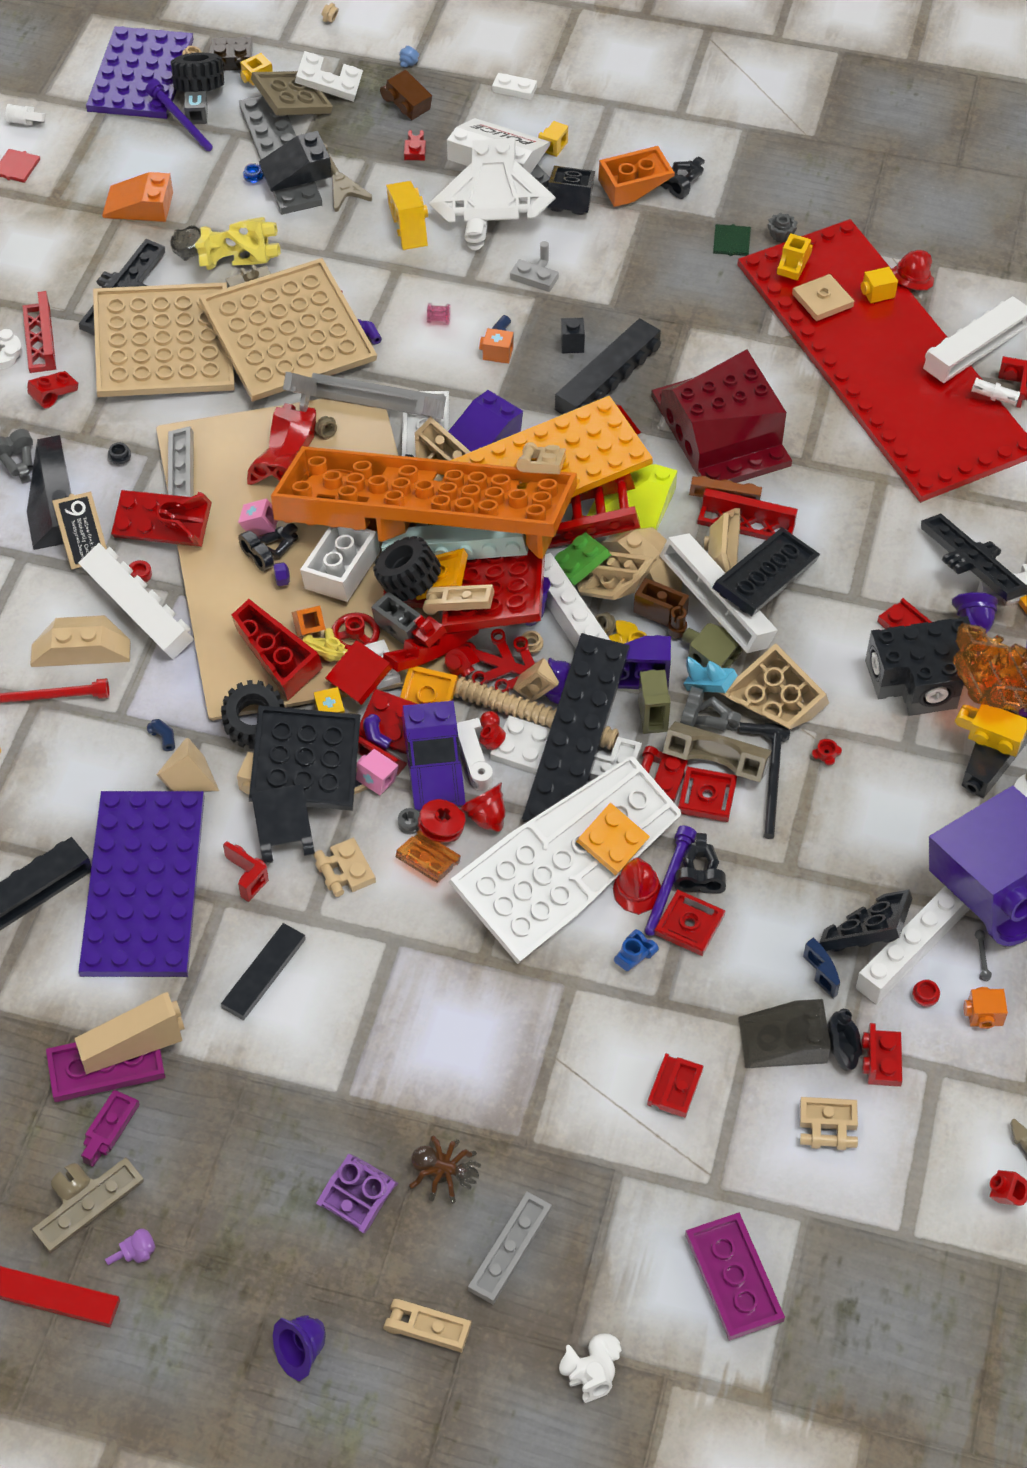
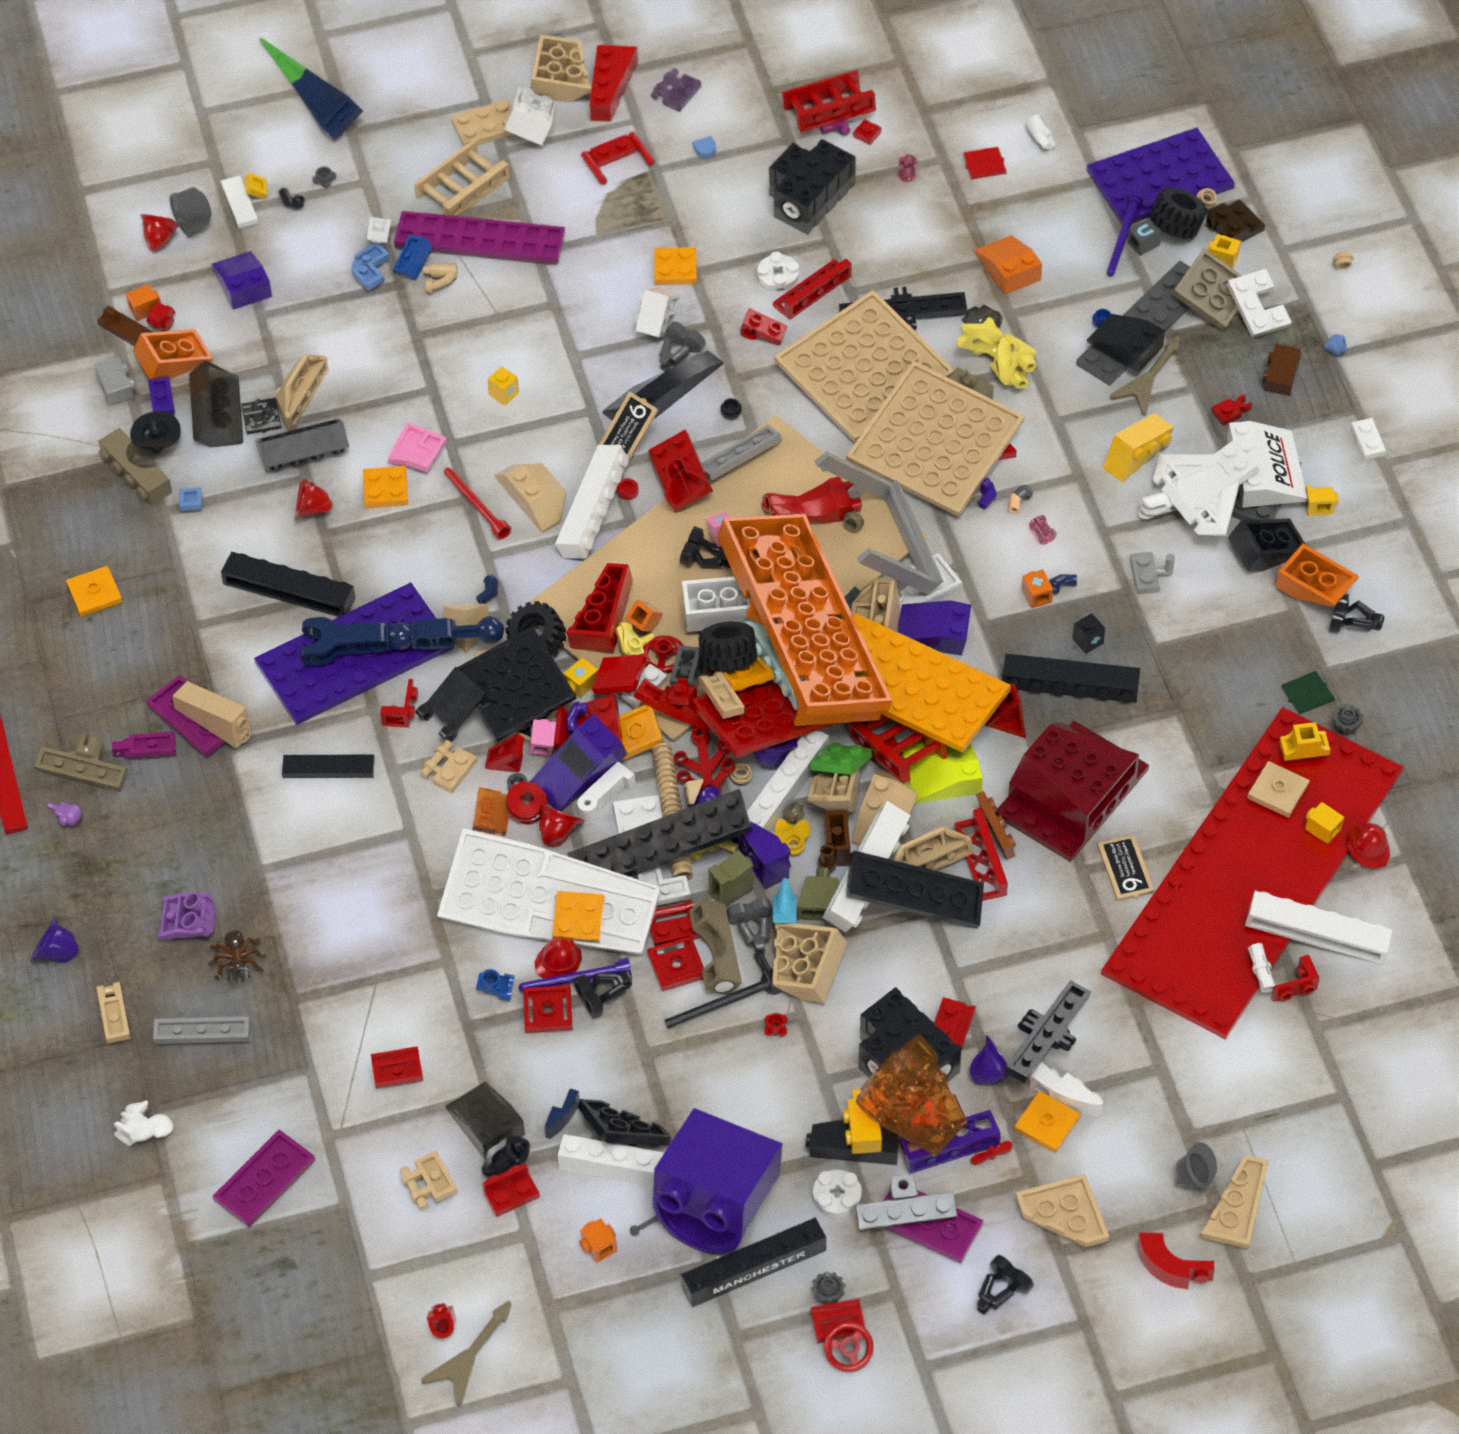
camera: 60 degrees right, 0 degrees up
(156, 842) = (379, 637): none -> dark blue piece
(282, 574) = (680, 574): dark purple tile -> none
(372, 810) = (506, 755): none -> red slope
(388, 314) = (1015, 498): none -> arm
(461, 661) = (682, 735): red plate -> none
(492, 734) = (629, 792): red plate -> none
(549, 459) = (893, 677): tan plate -> none
(823, 433) = (1125, 867): none -> piece
(926, 993) = (587, 1195): red plate -> none

